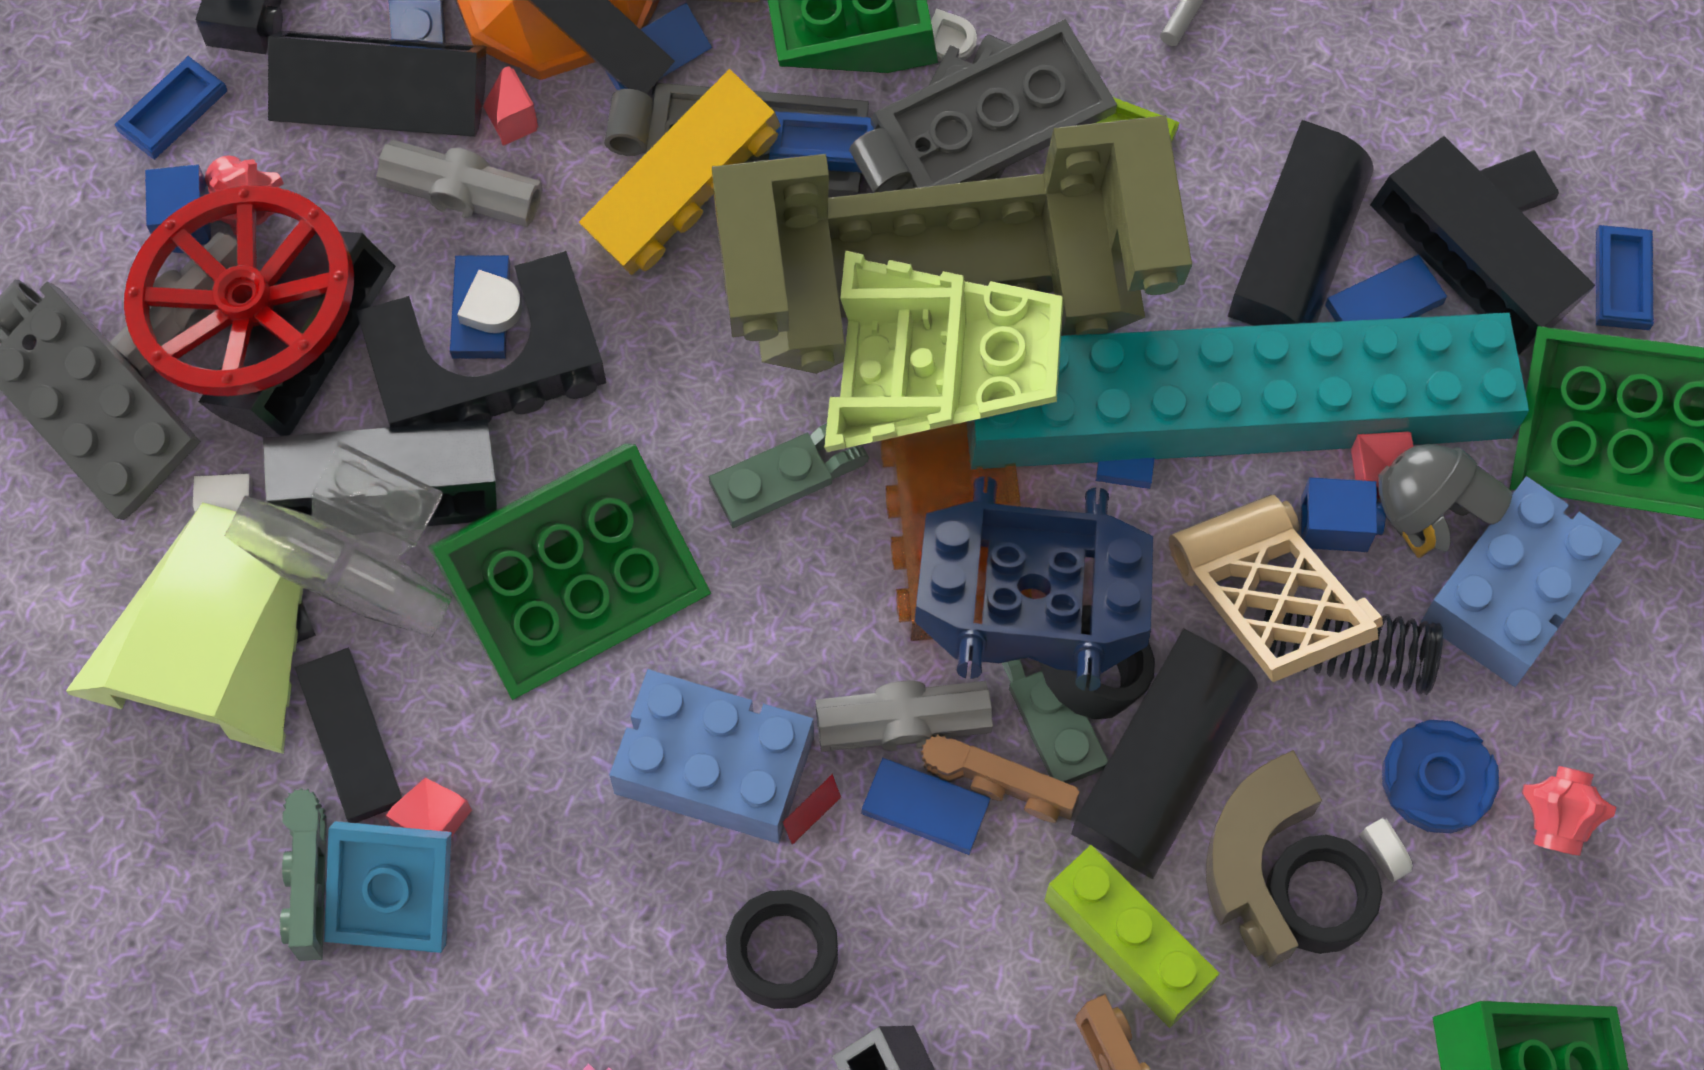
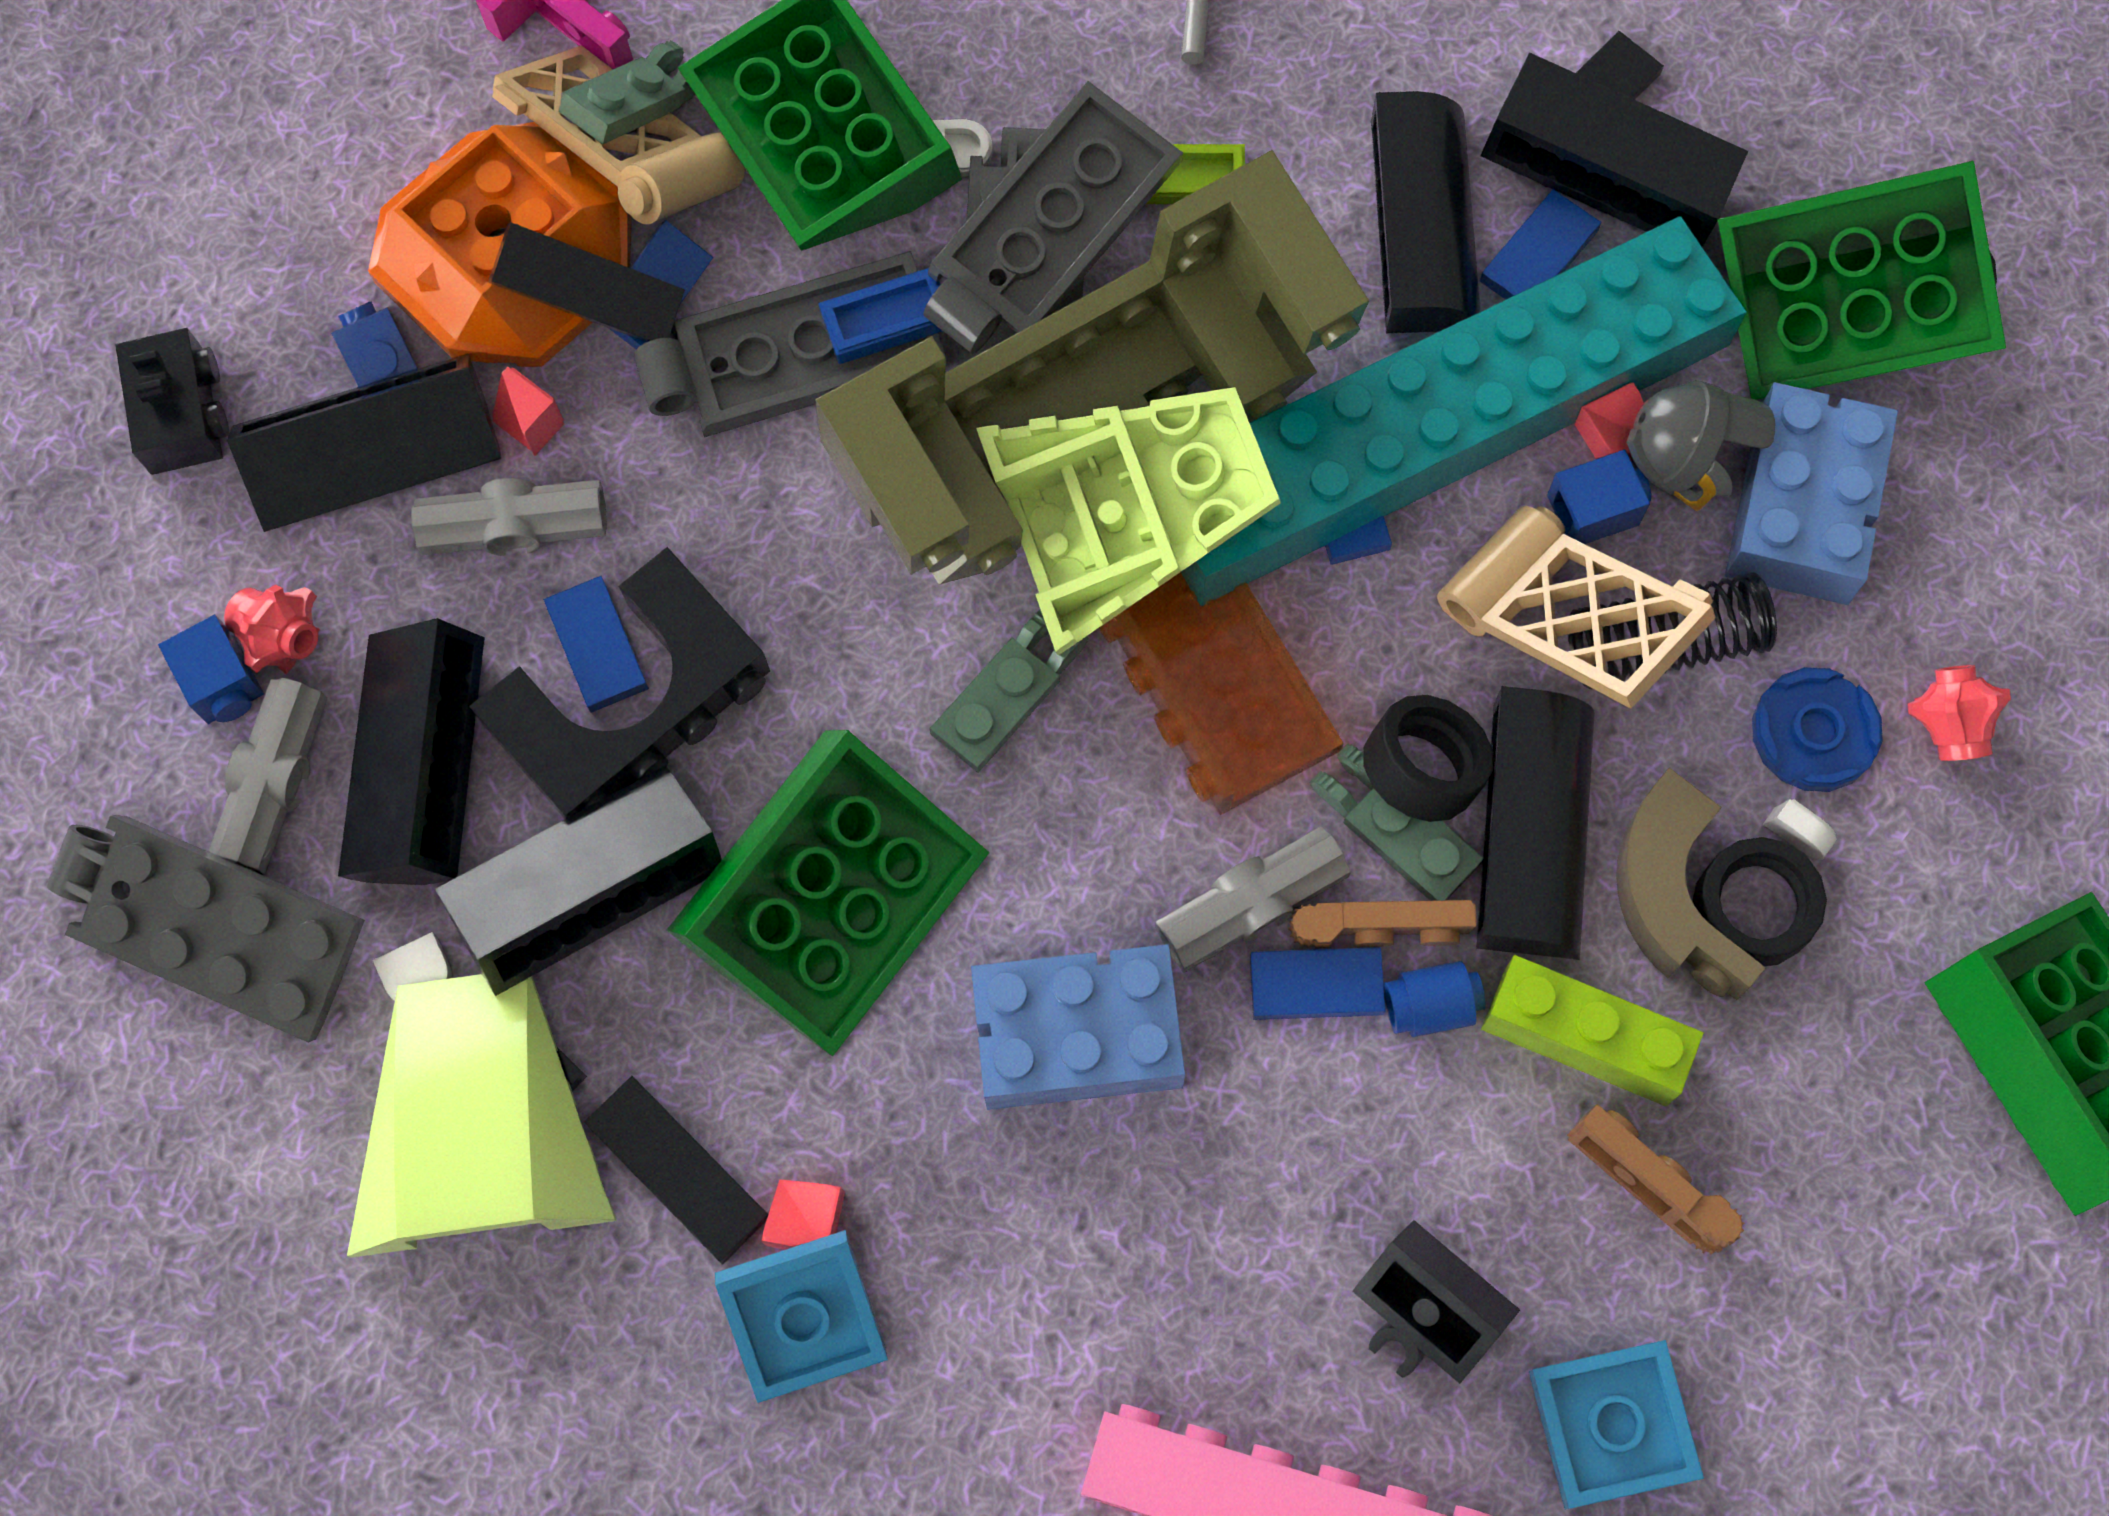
camera: 20 degrees left, 5 degrees up
(171, 107) = (146, 560): blue tile -> none
(240, 292) = (323, 734): red wheel -> none
(305, 873) = (701, 1338): sand green hinge -> none
(352, 541) = (589, 962): clear plate -> none
(491, 304) = (610, 637): white tile -> none
(676, 174) = (752, 411): yellow brick -> none
(782, 904) = (1259, 1151): black tyre -> none
(812, 809) = (1205, 1039): red sticker -> none
(1014, 857) = (1434, 999): none -> blue brick
(1040, 553) = (1327, 667): dark blue piece -> none
(1624, 277) = (1767, 130): blue tile -> none

